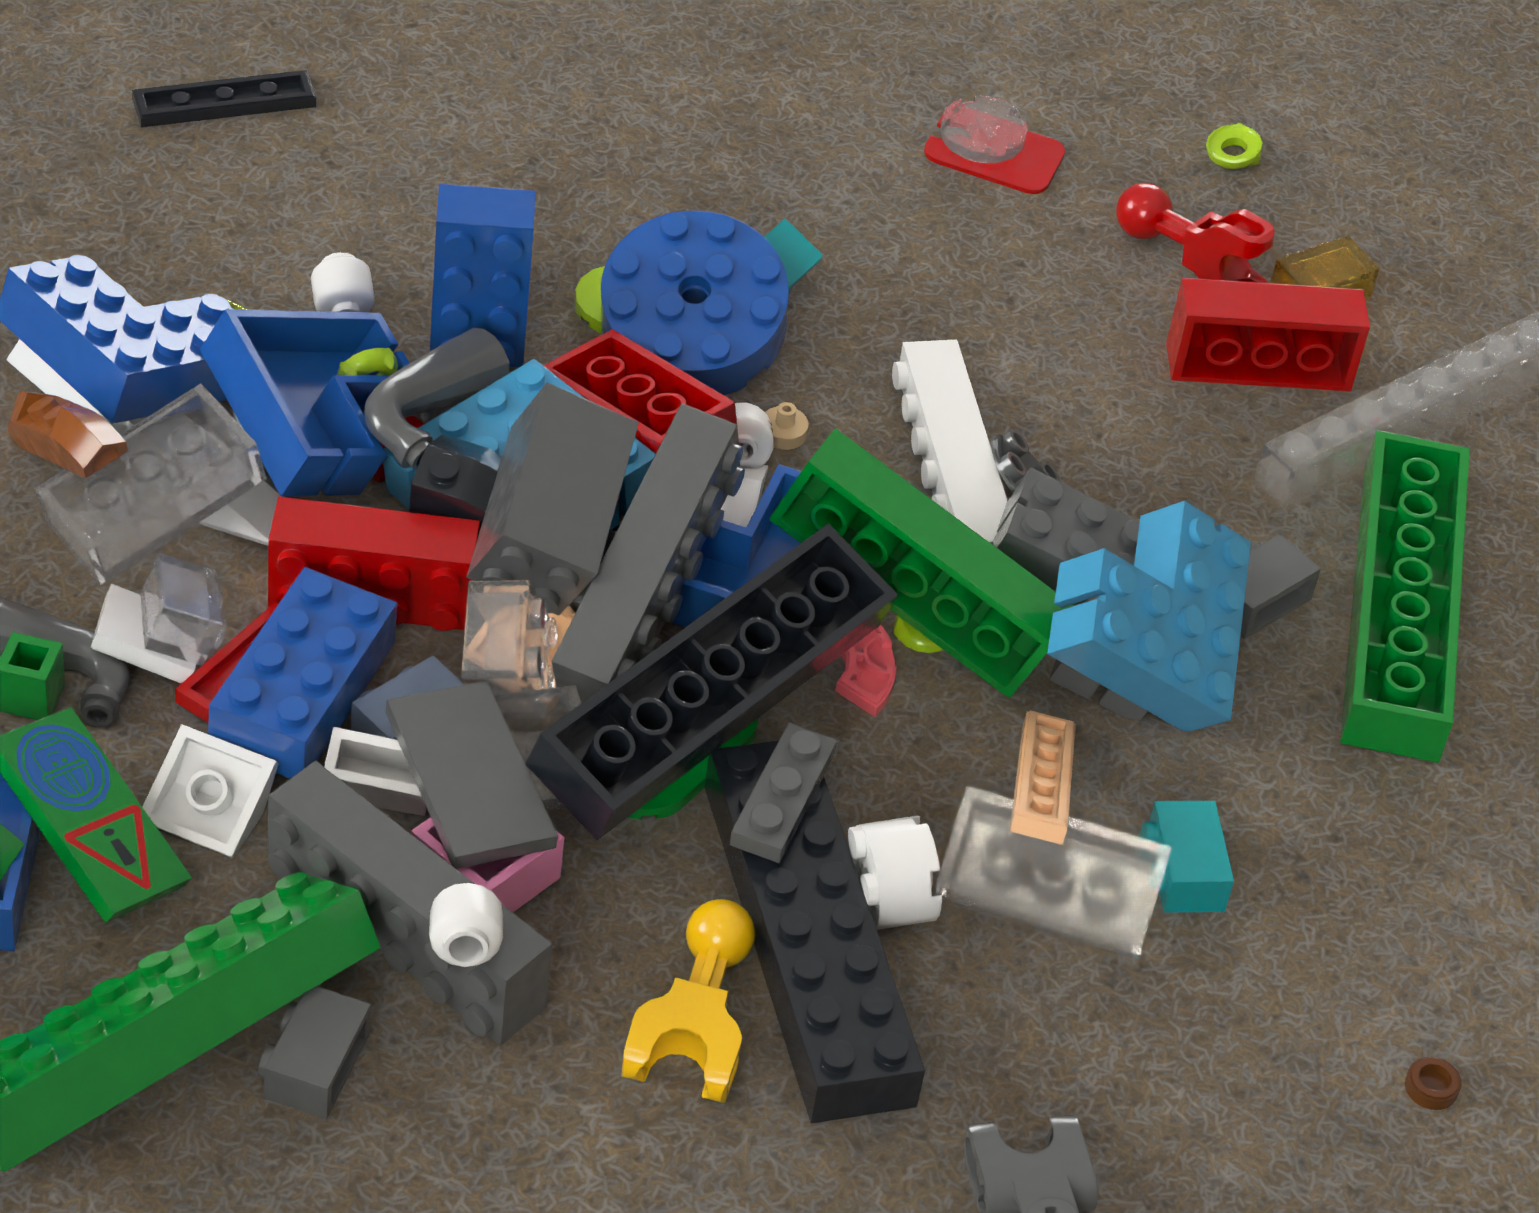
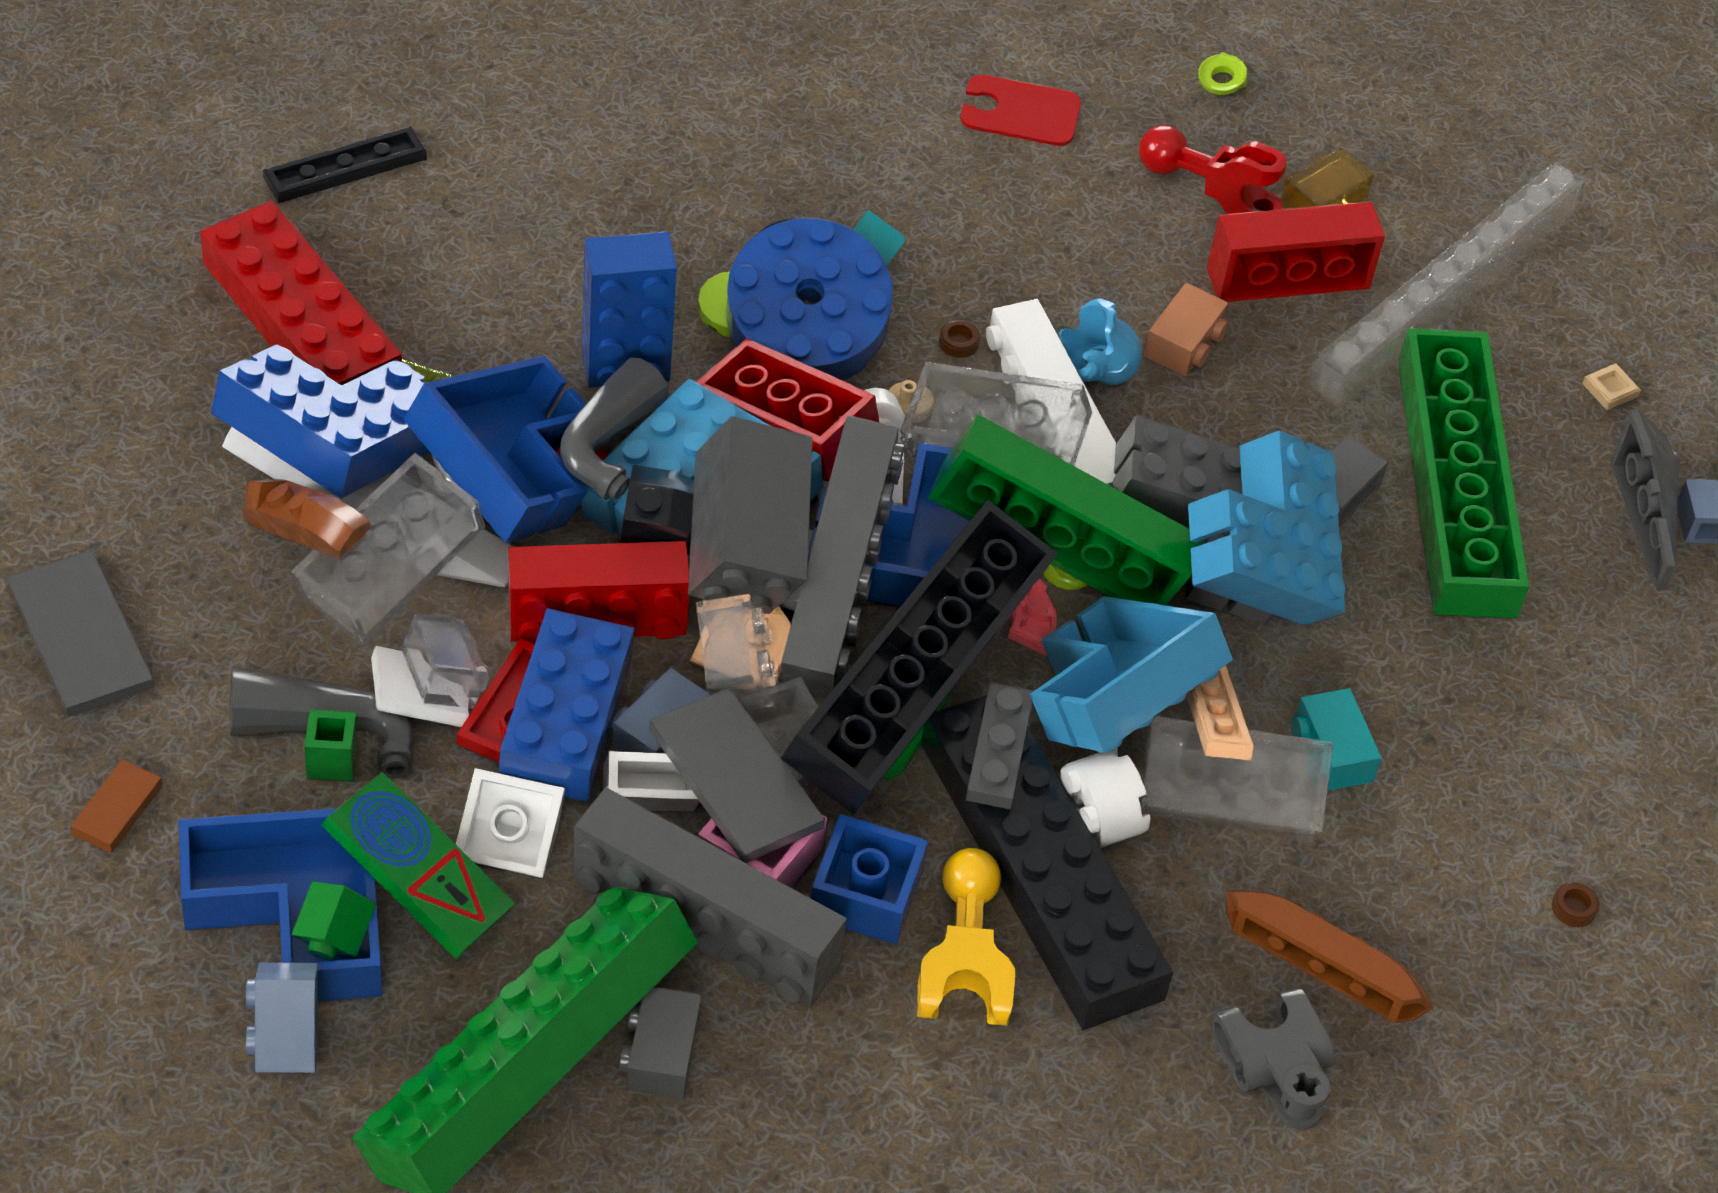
camera: 10 degrees left, 5 degrees up
(124, 212) = (293, 294): none -> red brick
(342, 284) = (499, 332): white head -> none
(370, 361) = (555, 403): lime piece -> none
(466, 924) = (776, 917): white head -> none
(601, 913) = (870, 877): none -> blue brick
(861, 372) = (959, 339): none -> reddish brown tile
(923, 448) = (1036, 409): none -> clear brick
(962, 727) = (1126, 671): none -> dark azure piece
(983, 129) = (1008, 92): clear tile -> none
(1014, 459) = (1114, 406): dark grey dish -> none
(1019, 397) = (1102, 345): none -> dark azure hair
(1122, 1087) = (1327, 953): none -> dark orange brick
(1123, 399) = (1186, 330): none -> nougat brick

